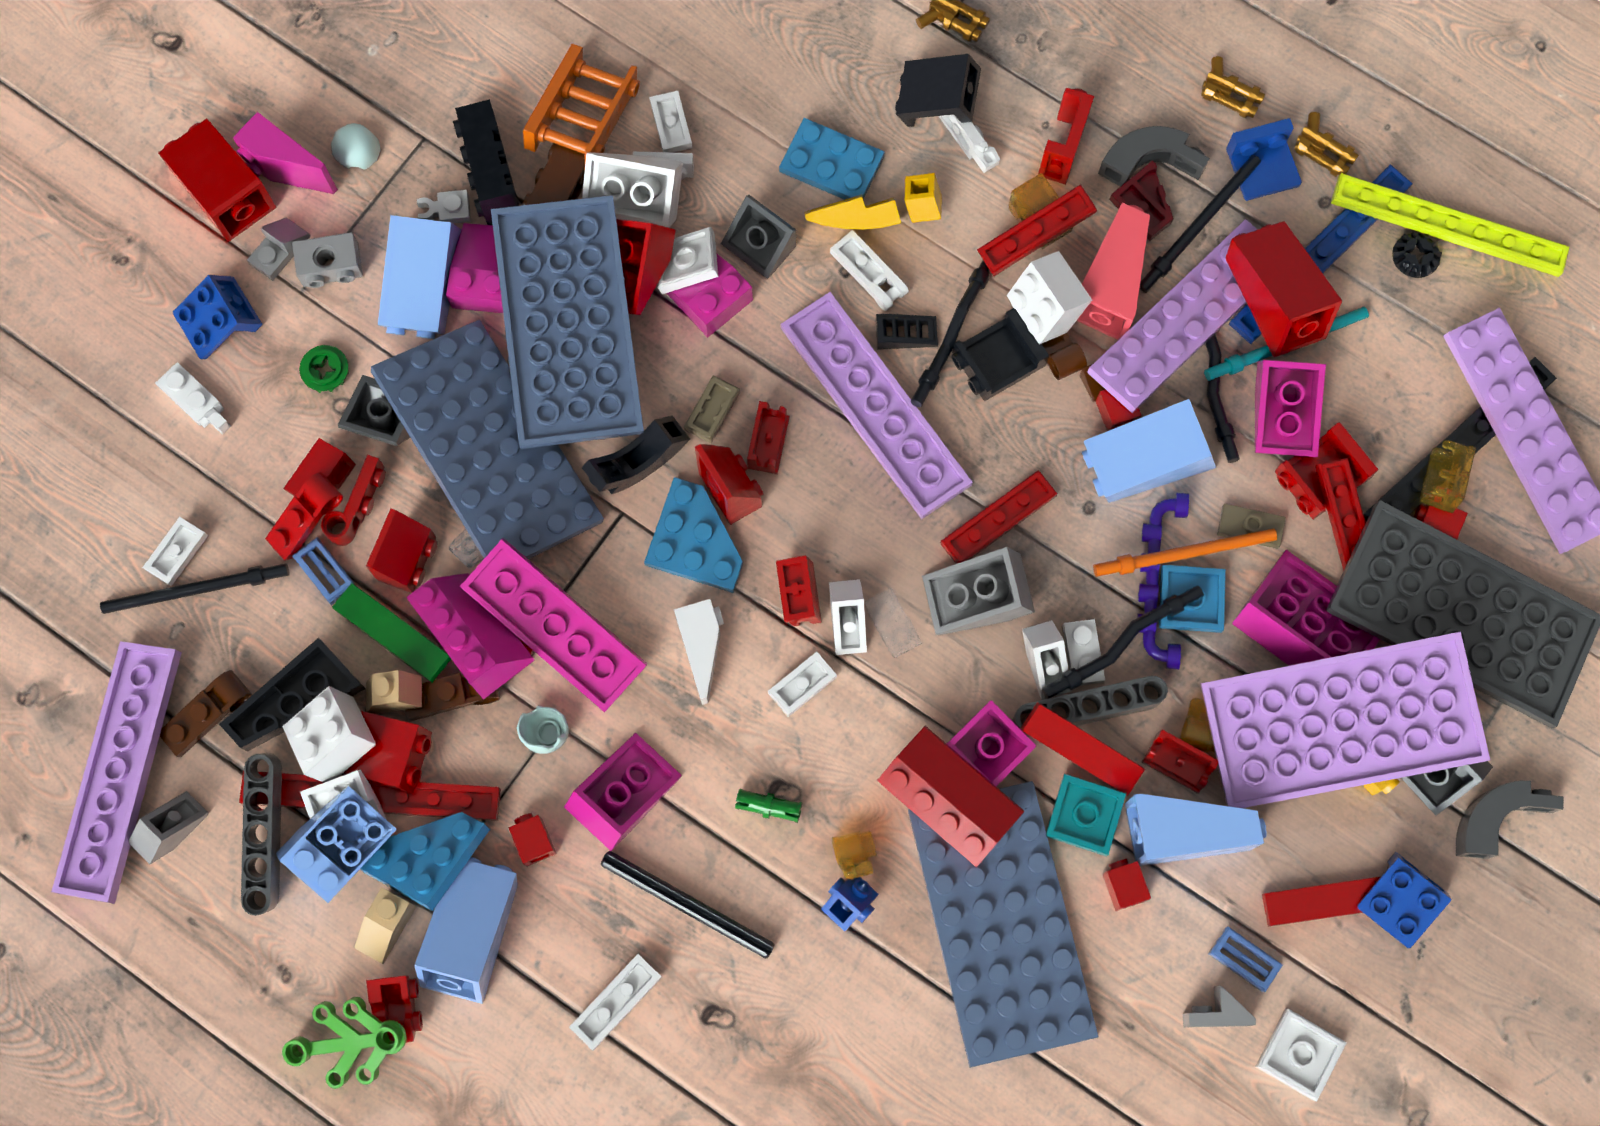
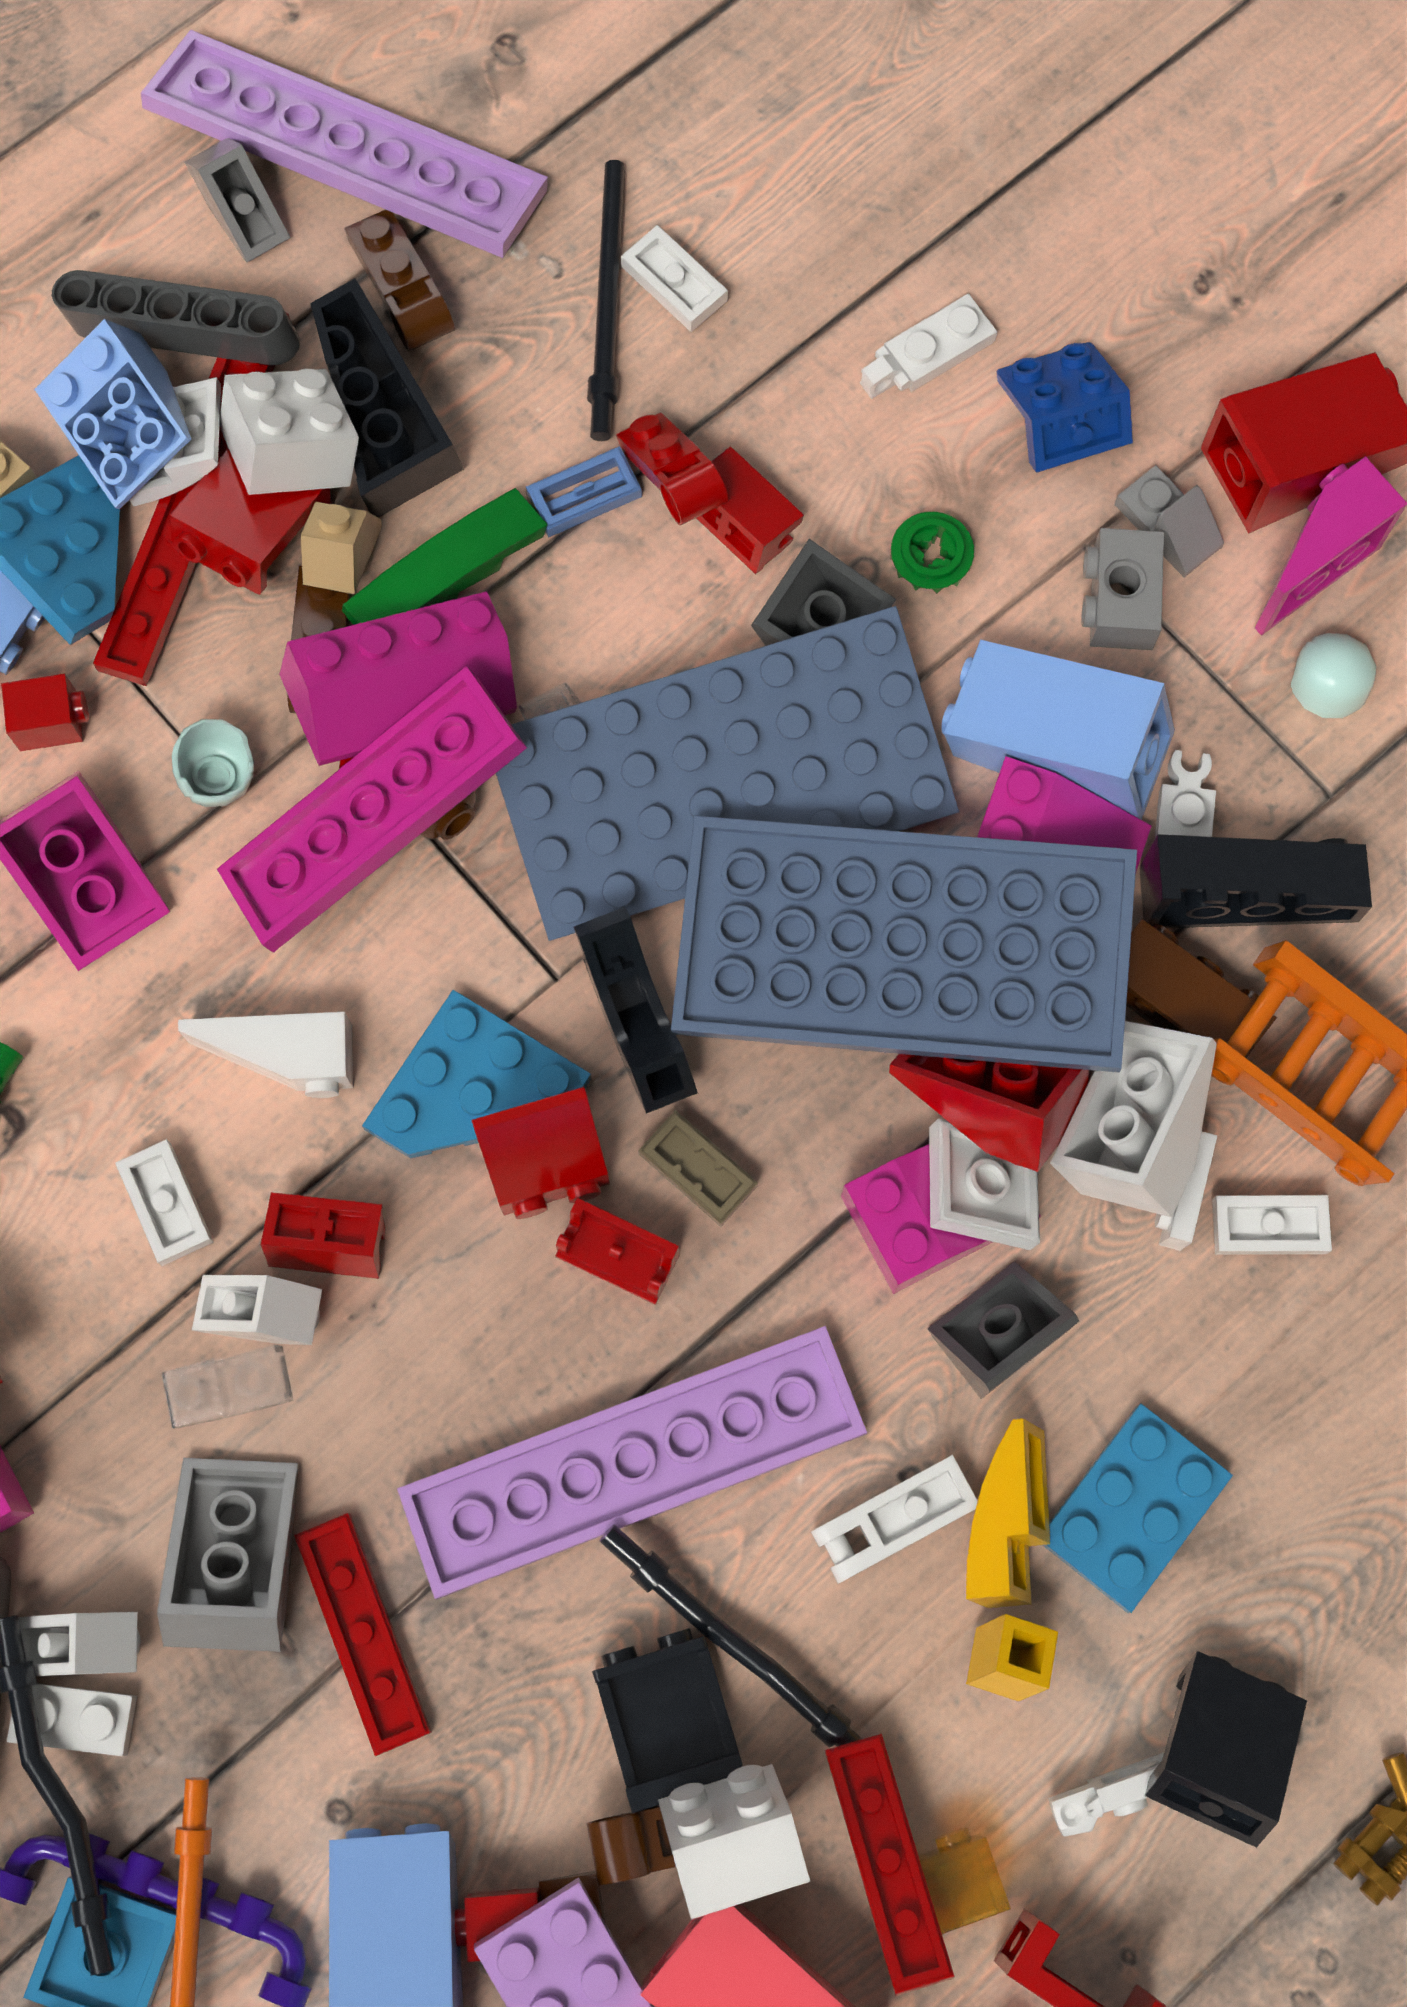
camera: 105 degrees right, 0 degrees up
(358, 505) = (678, 559): red plate -> none
(402, 552) = (570, 603): red slope -> none
(896, 342) = (769, 1509): black slope -> none

